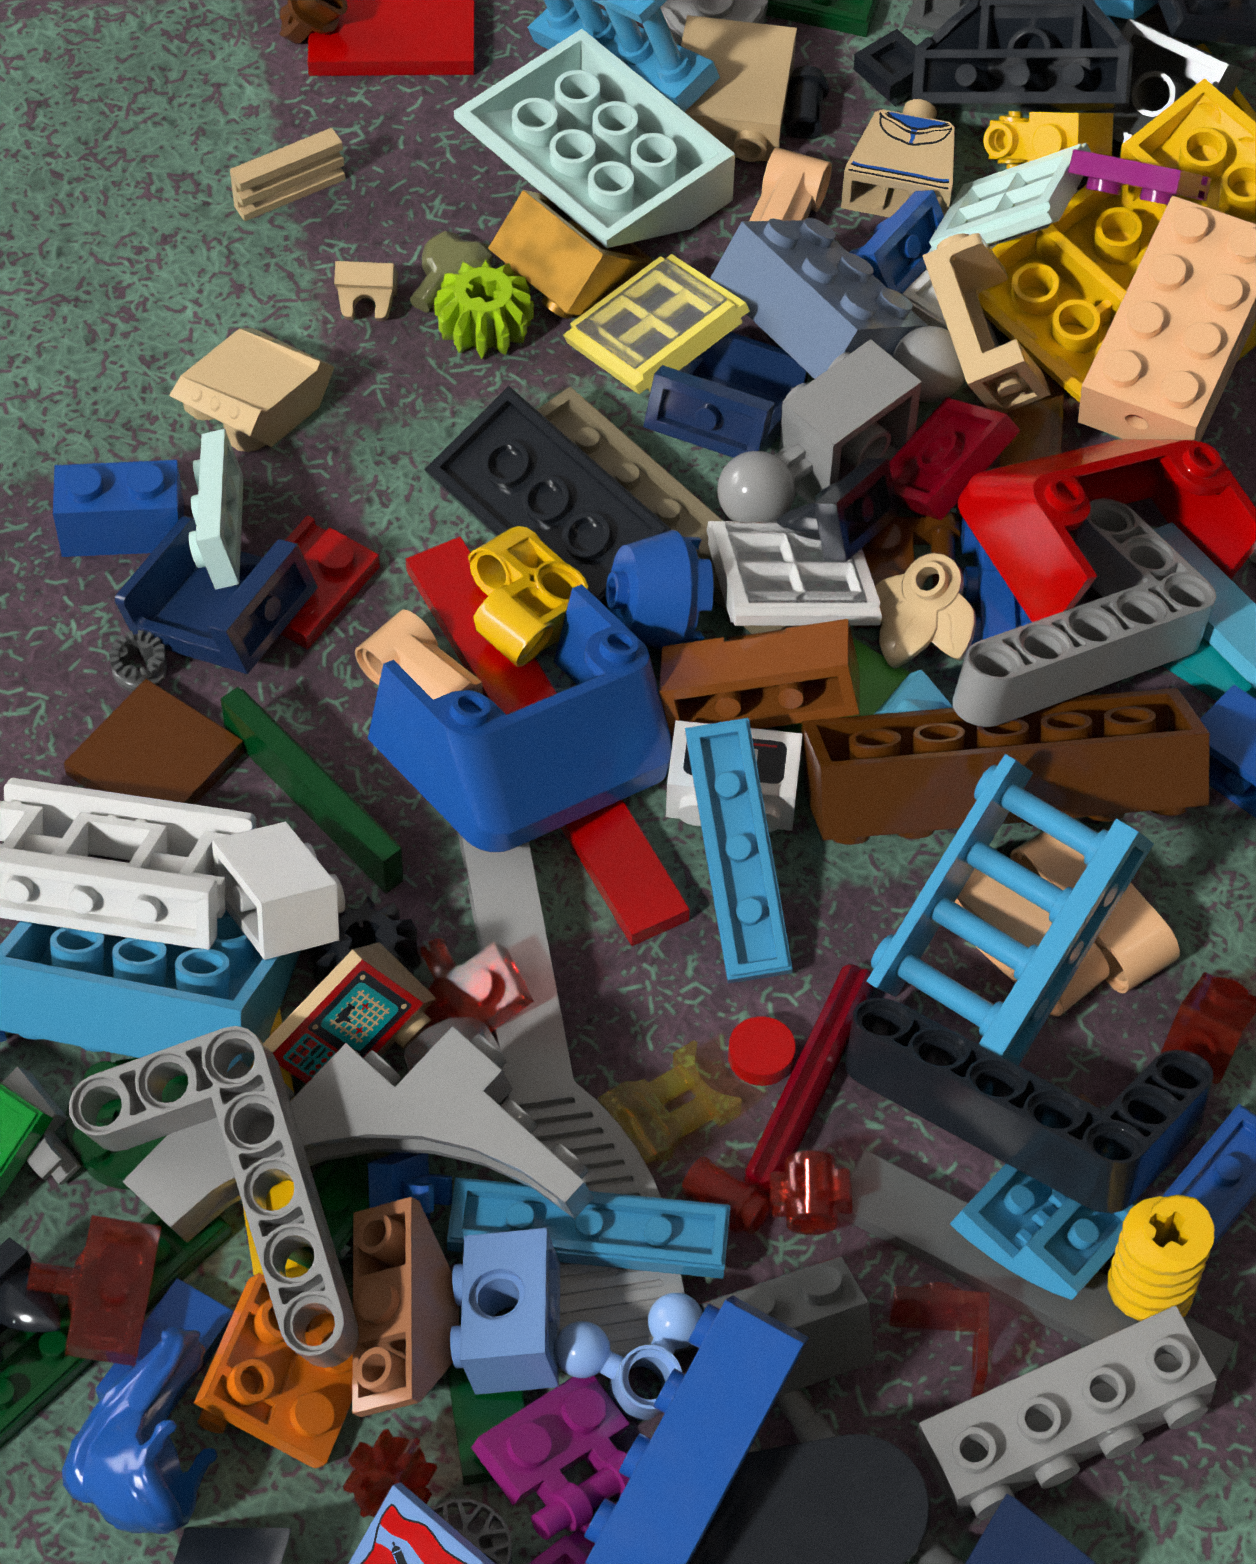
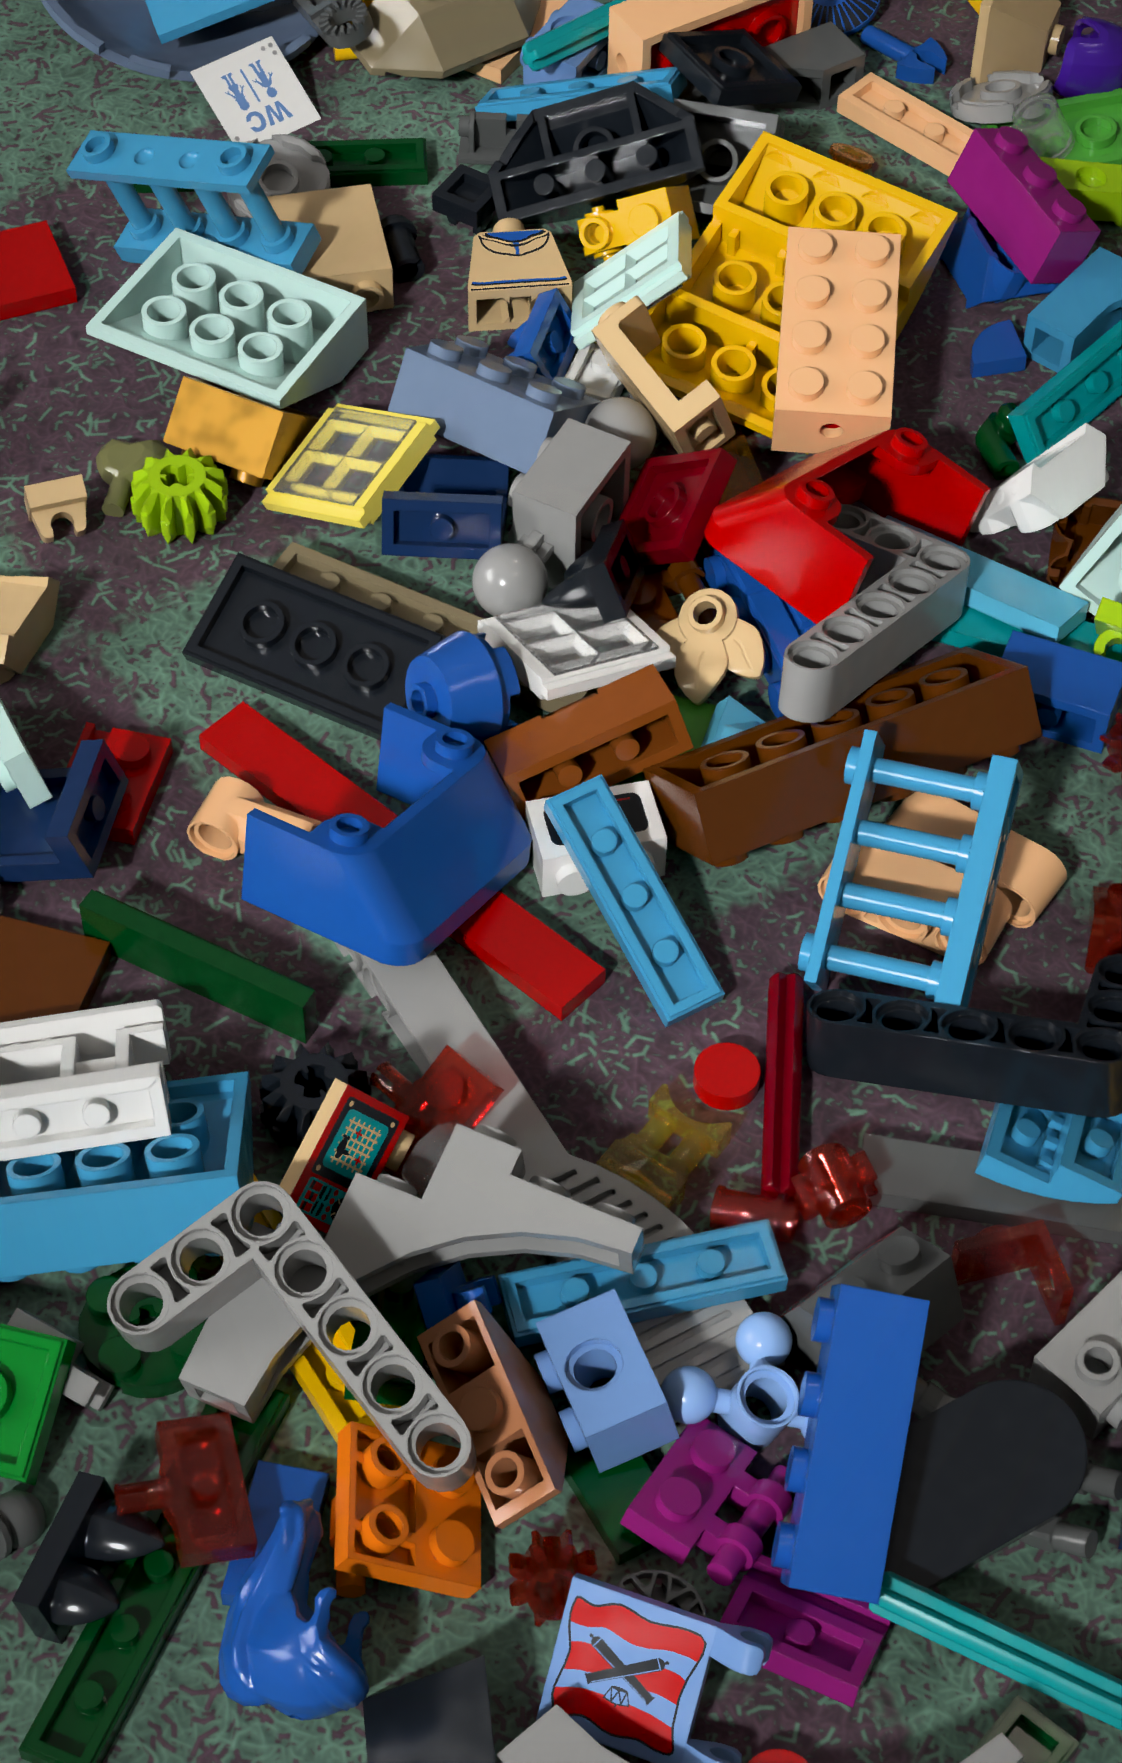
camera: 20 degrees left, 5 degrees down
(278, 890) = (217, 1059): white brick -> none
(525, 592) = (335, 735): yellow piece -> none
(792, 186) = (419, 318): light nougat piece -> none
(1157, 182) = (763, 221): magenta plate -> none

